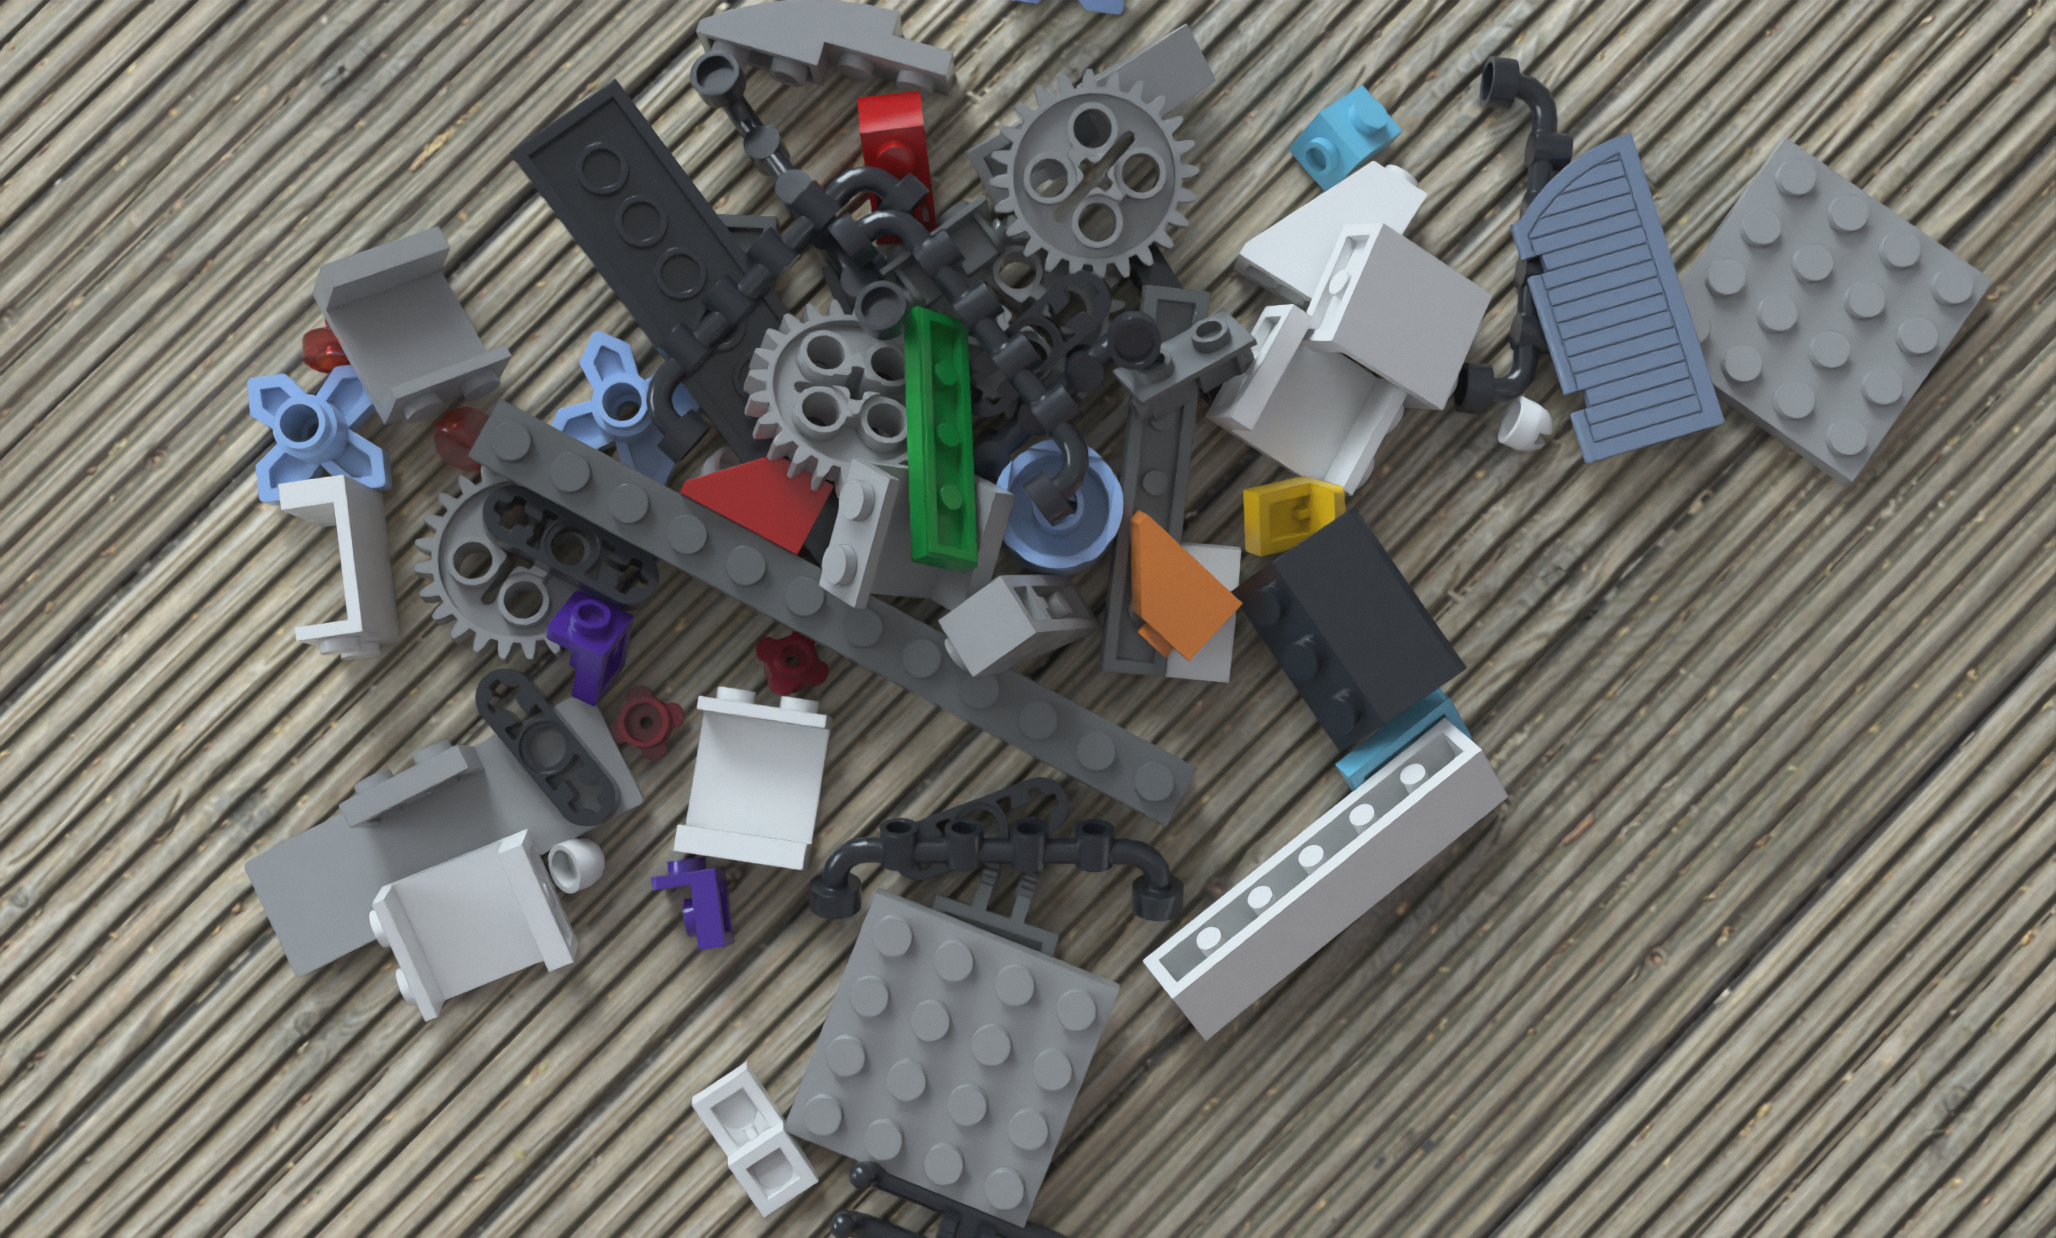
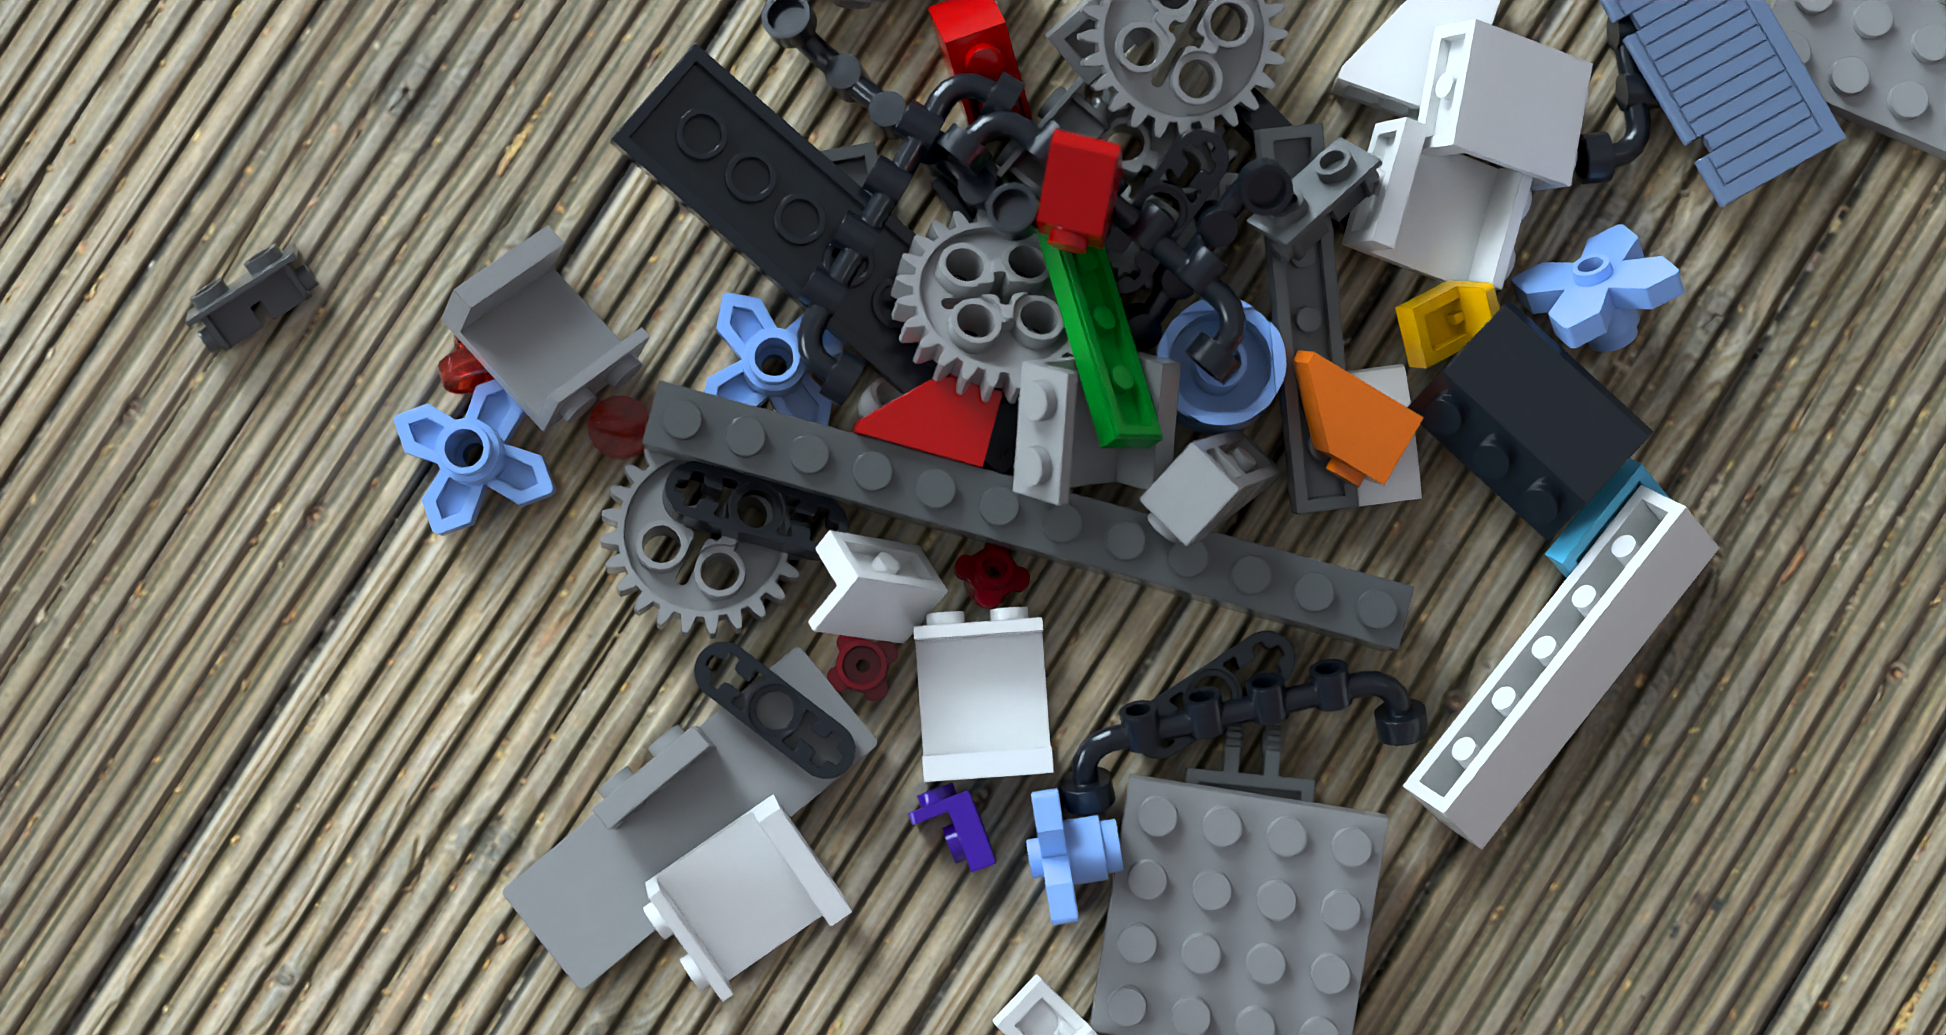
camera: 10 degrees left, 0 degrees up
(116, 242) = (228, 308): none -> dark grey hinge
(364, 563) = (529, 514): white panel -> none
(576, 864) = (826, 819): white hinge -> none
(598, 639) = (798, 589): dark purple bracket -> none
(670, 649) = (879, 588): none -> white panel
(796, 953) = (1069, 853): none -> light blue plant
(946, 301) = (1079, 191): none -> red slope
(1449, 519) = (1601, 291): none -> light blue plant
(1523, 425) = (1650, 183): white hinge -> none

